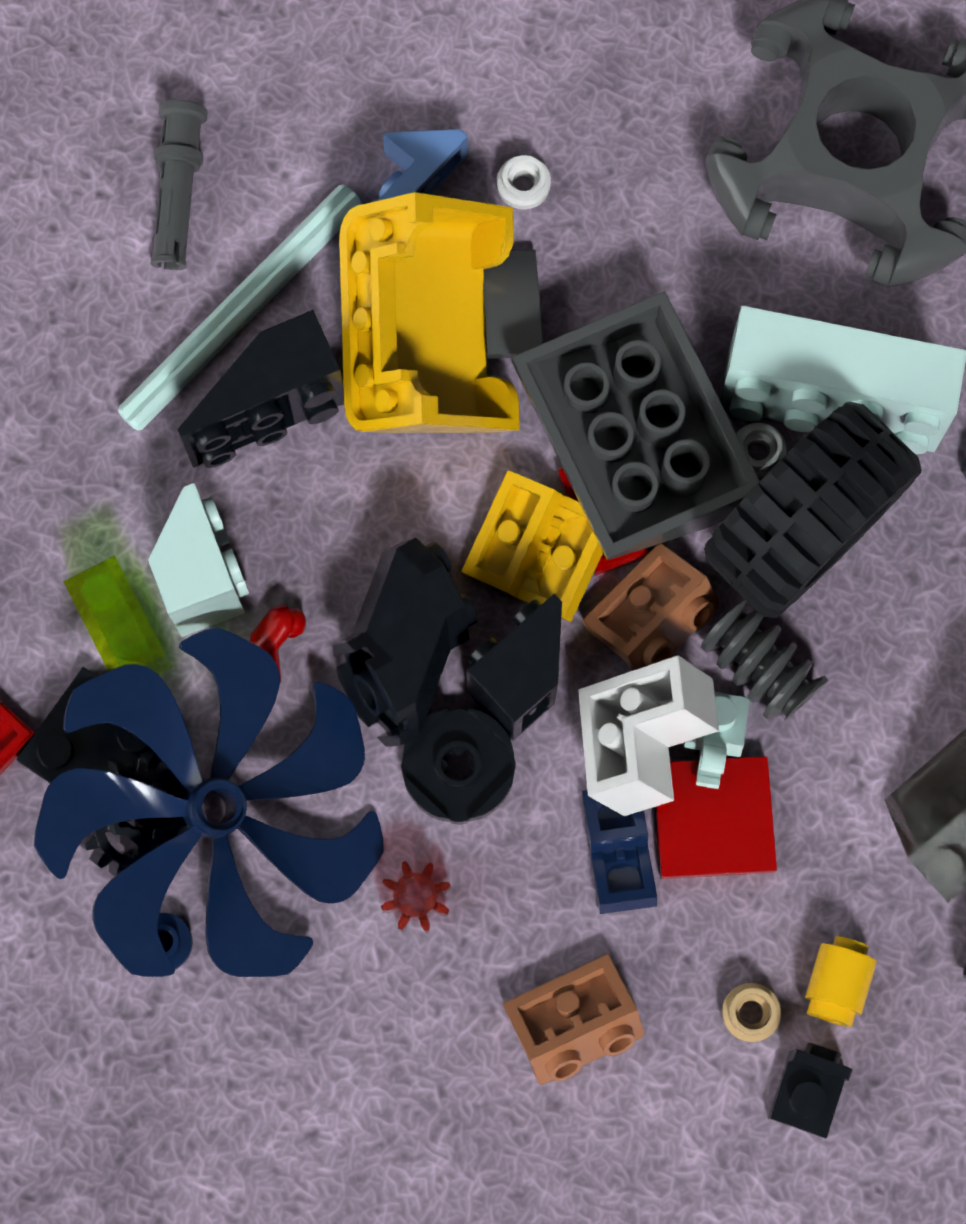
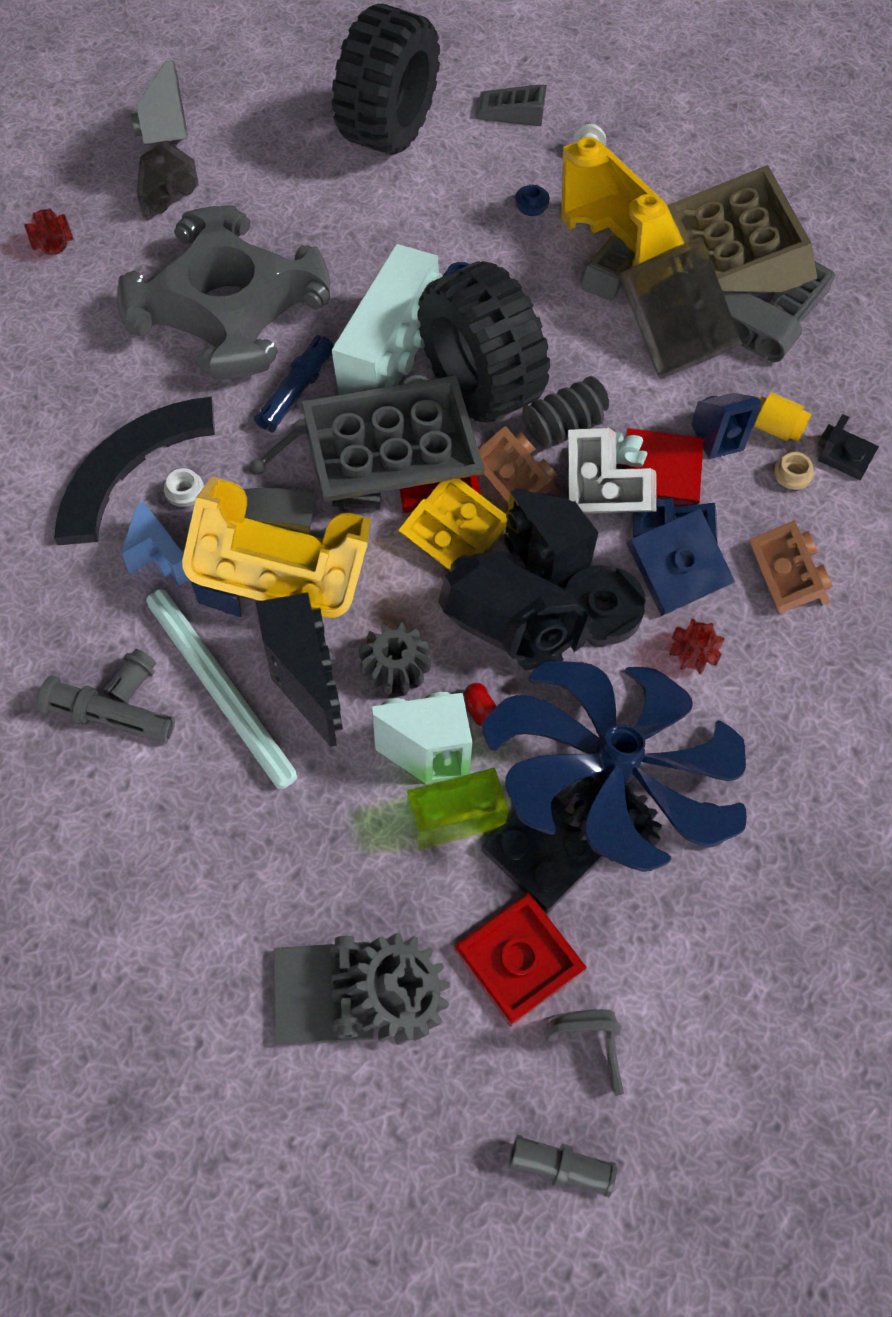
camera: 80 degrees left, 15 degrees down
(230, 198) = (130, 676): none -> dark grey pin
(326, 491) = (378, 661): none -> dark grey gear
(544, 859) = (680, 562): none -> dark blue plate
(558, 86) = (117, 456): none -> black tile
(586, 266) = (258, 466): none -> dark grey hinge
(733, 278) = (303, 372): none -> dark blue pin
(802, 890) = (725, 422): none -> dark blue slope

